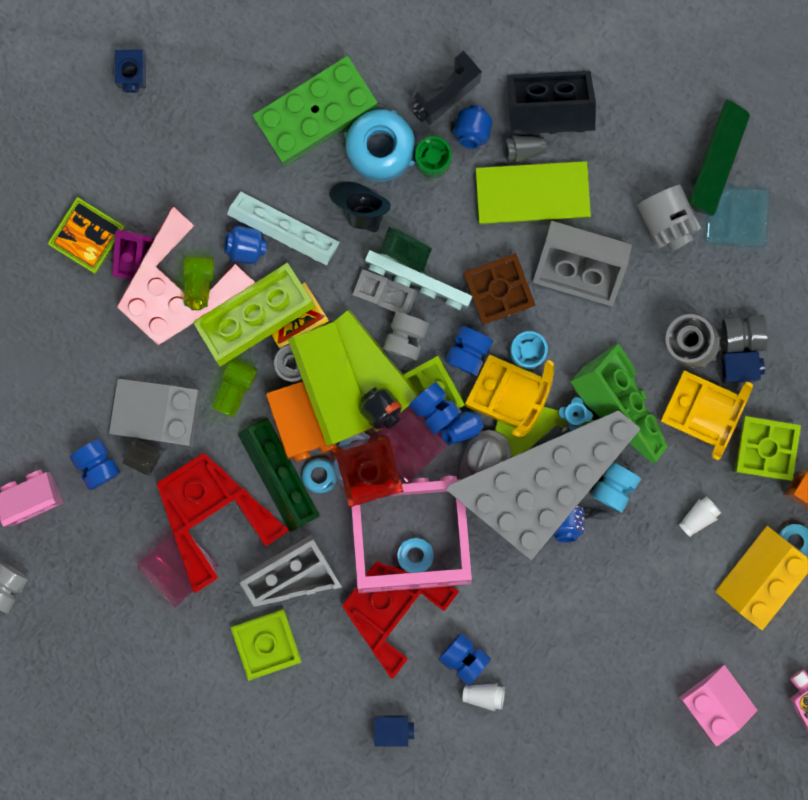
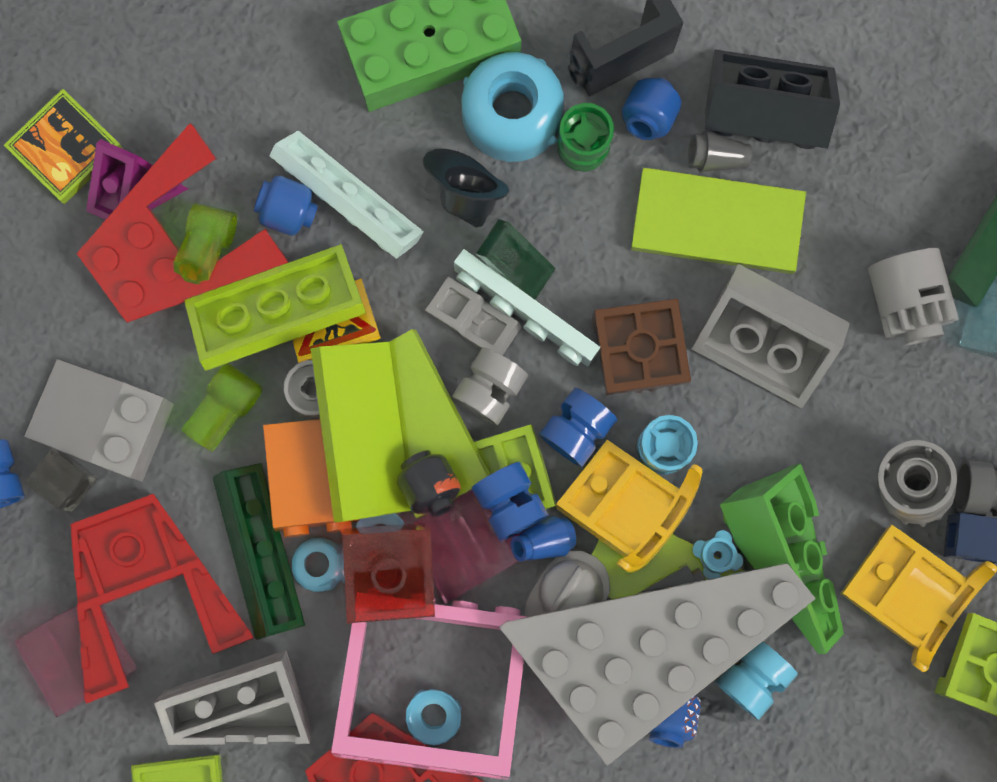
camera: 10 degrees right, 5 degrees down
(700, 516) = (874, 751): white cone -> none

